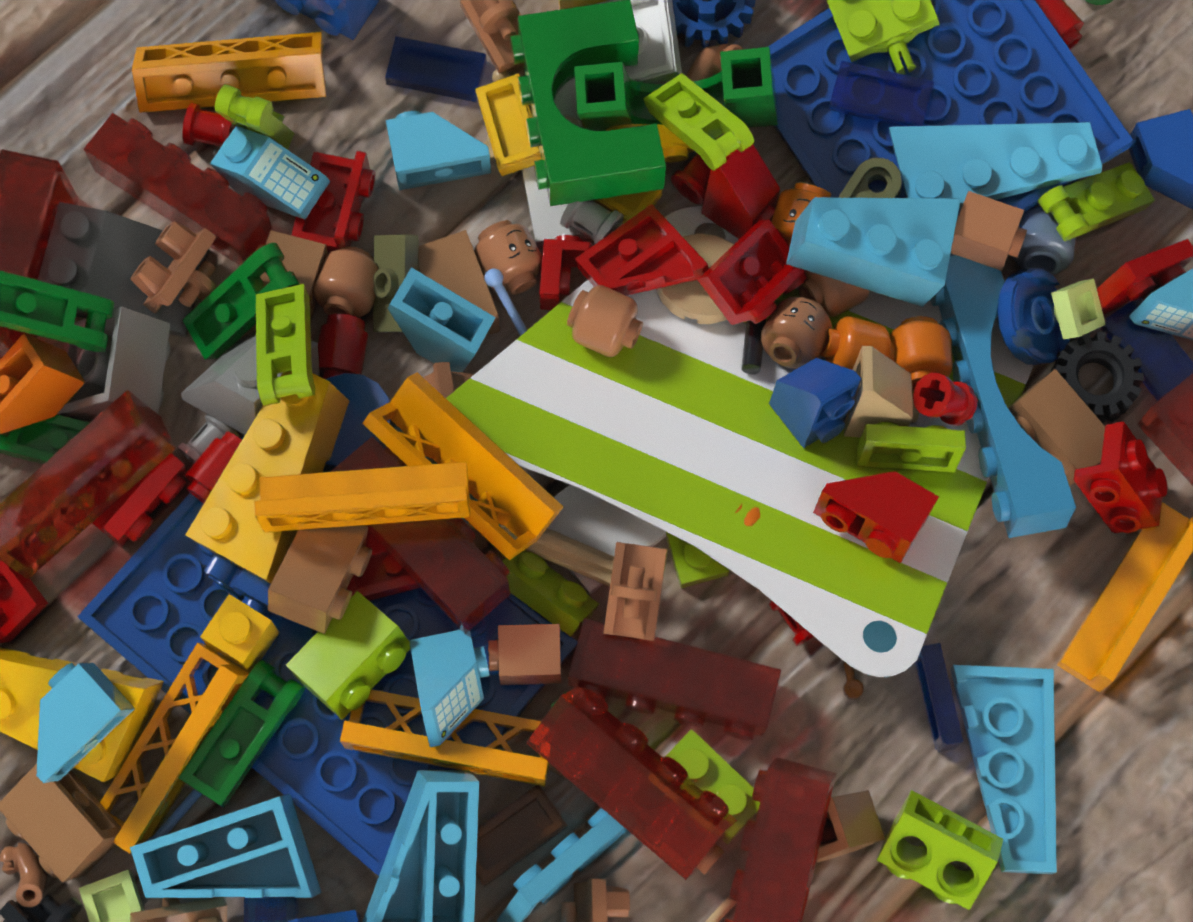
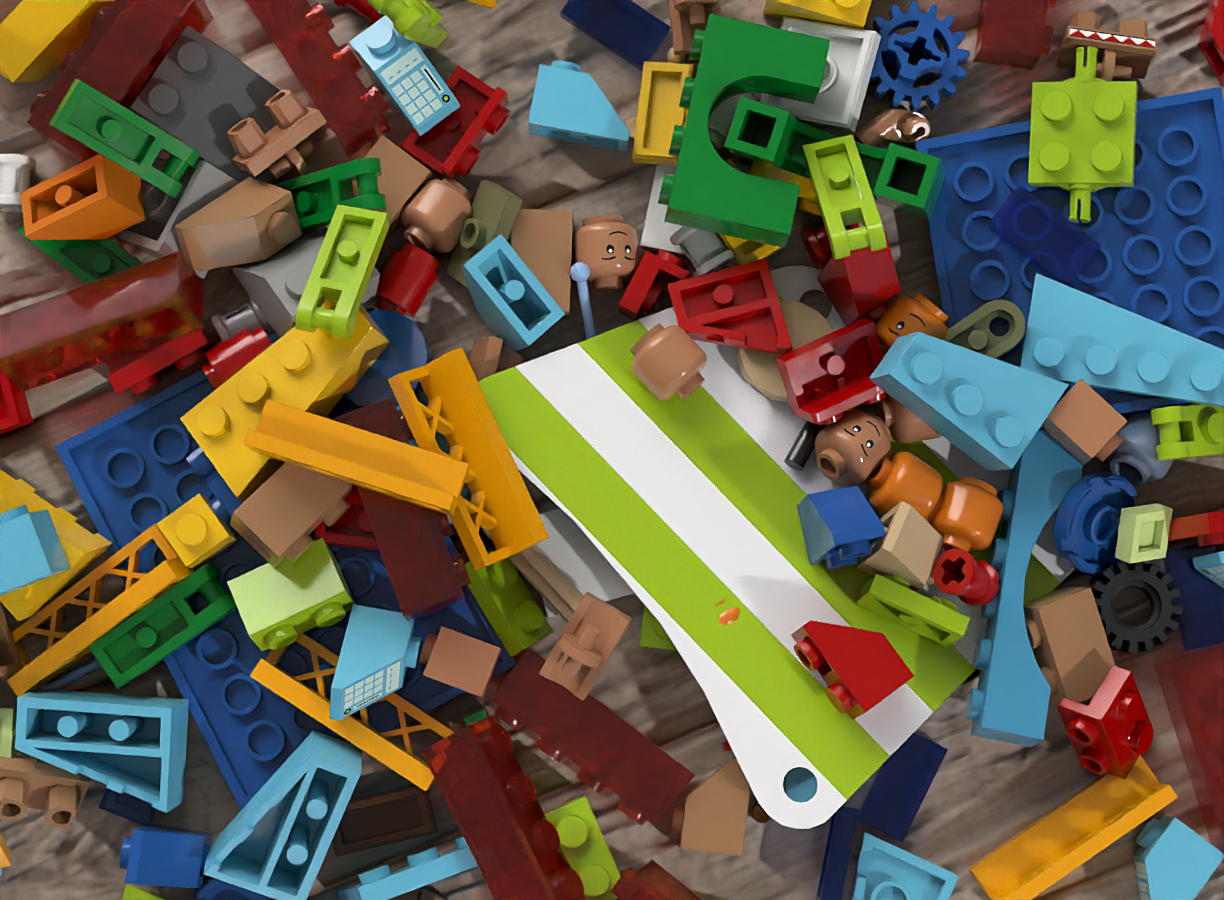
camera: 20 degrees right, 10 degrees up
(174, 353) = (239, 226): none -> medium nougat slope
(813, 701) = (714, 813): none -> medium nougat slope
(967, 614) = (901, 786): none -> clear blue tile

